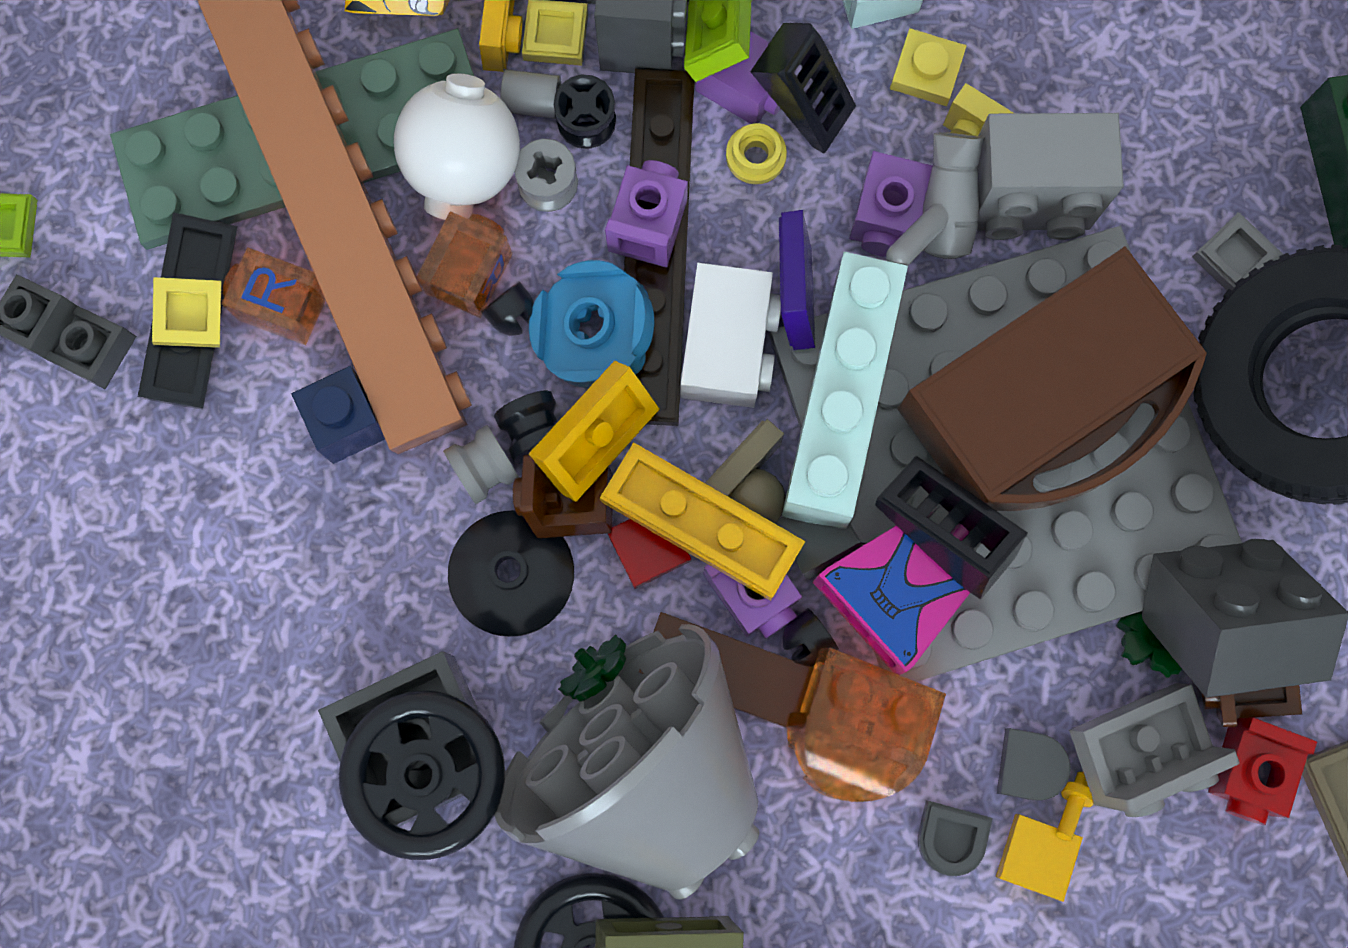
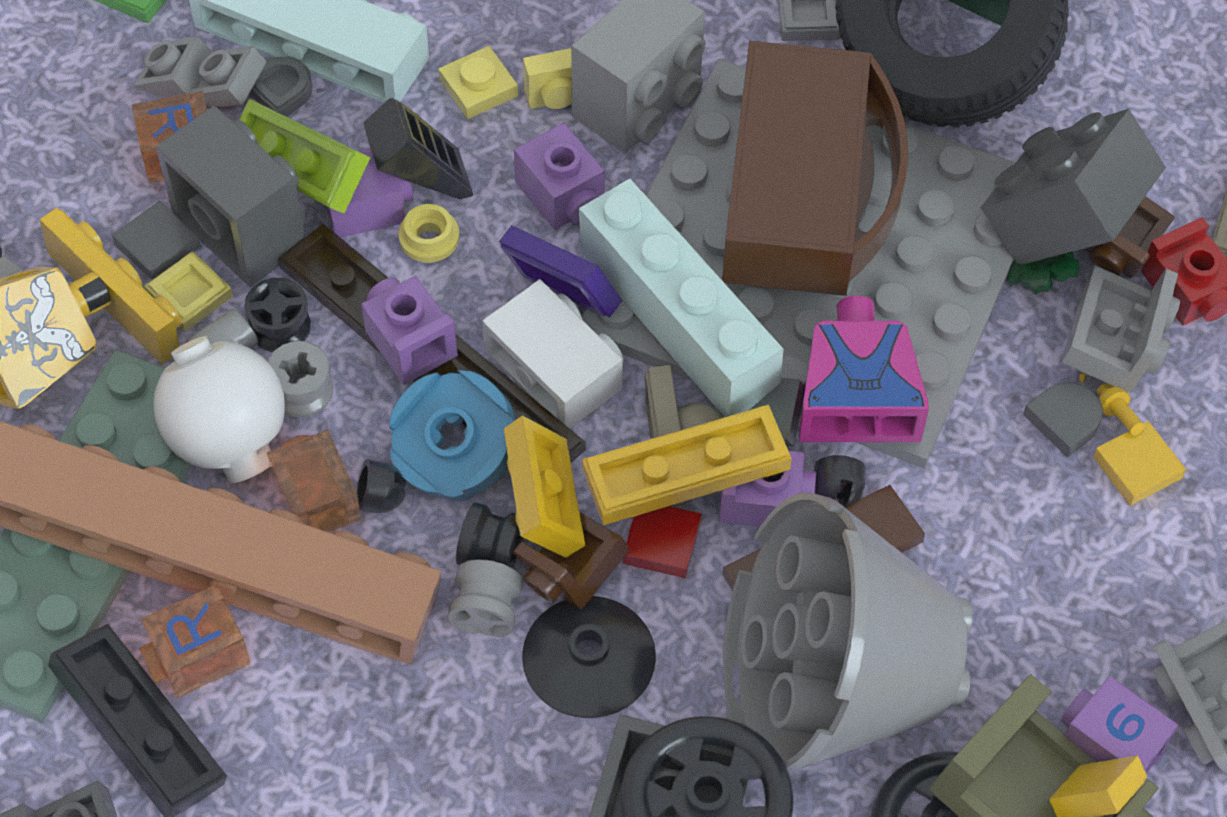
camera: 50 degrees left, 20 degrees down
(186, 312) = (148, 703): light yellow plate -> none
(338, 415) = (345, 665): dark blue brick -> none
(594, 669) = (728, 642): dark green plant -> none
(862, 728) = (941, 493): clear orange slope -> none
(950, 203) = (600, 129): light grey piece -> none
(952, 838) = (1075, 508): dark grey tile -> none
(954, 556) = (859, 295): black slope -> none

